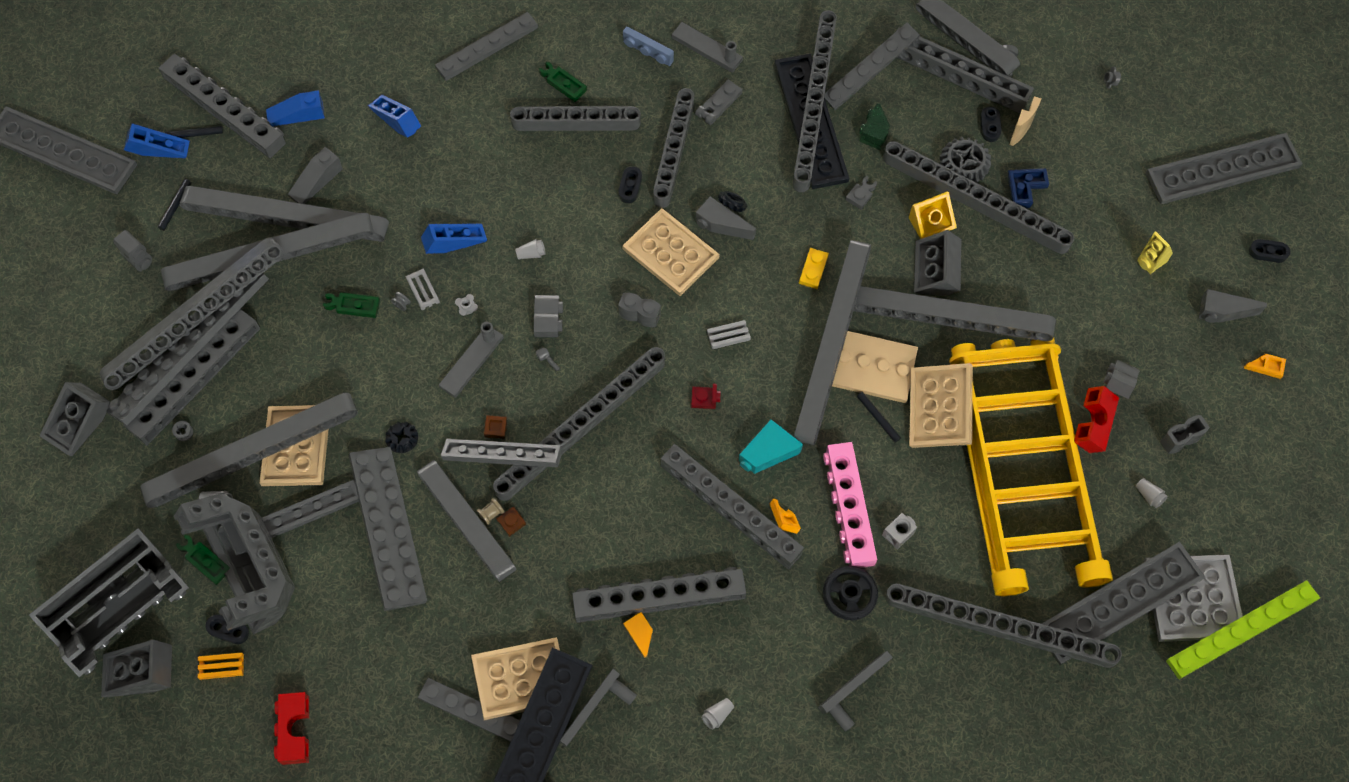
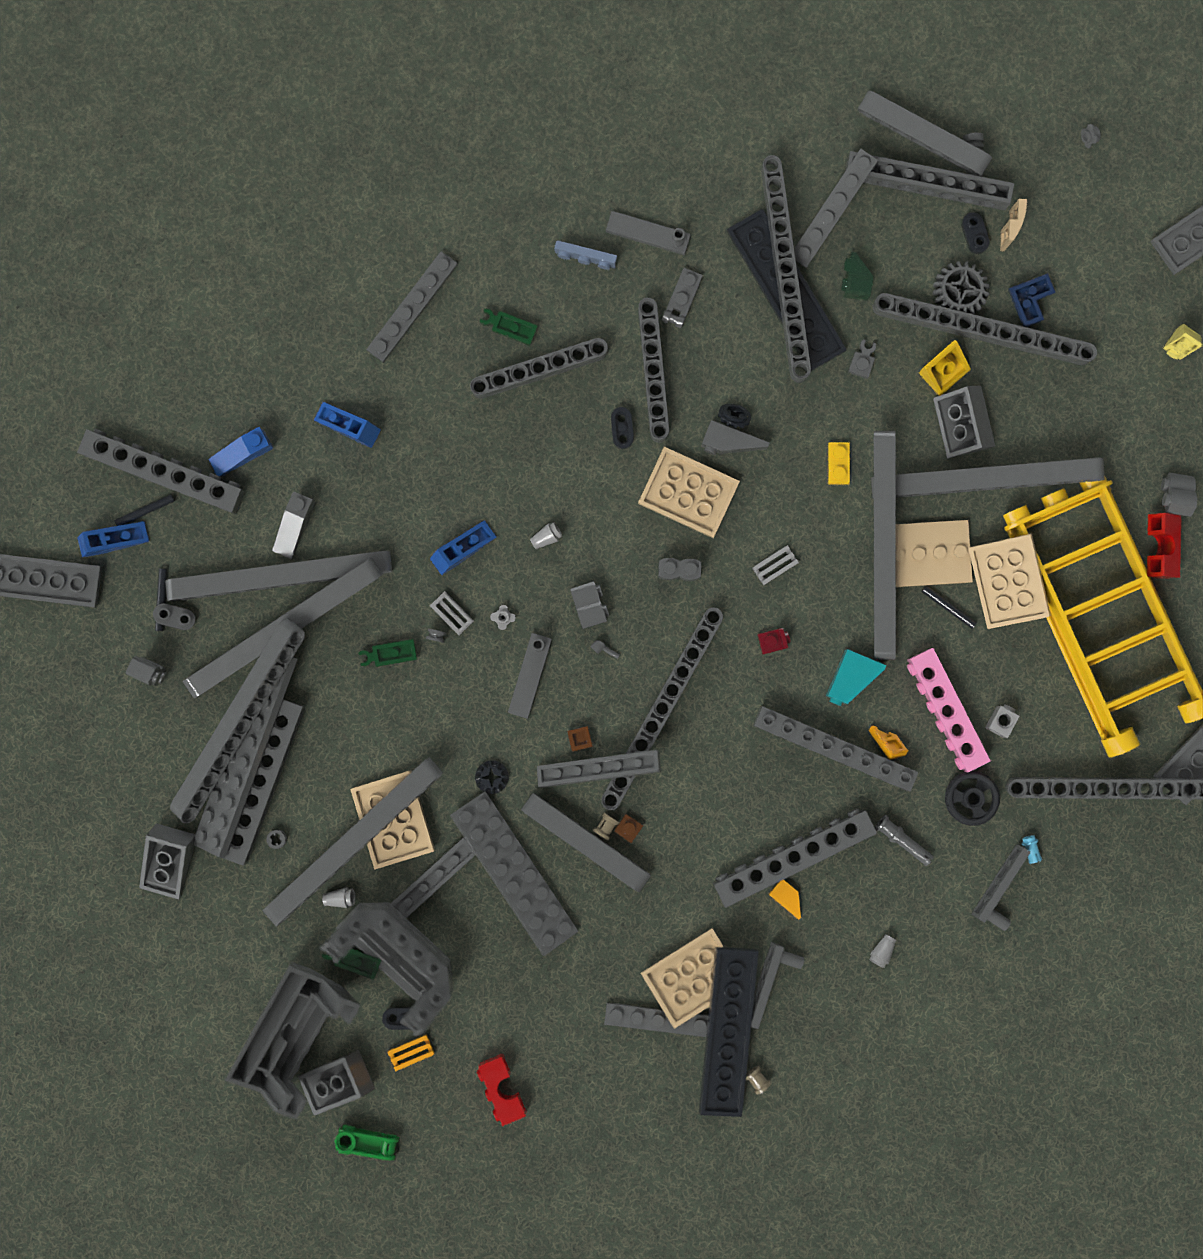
camera: 10 degrees left, 20 degrees up
(137, 738) = (366, 1143): none -> green piece
(178, 218) = (174, 616): none -> dark grey plate
(765, 604) = (897, 835): none -> dark grey pin
(895, 663) = (1030, 844): none -> medium azure pin

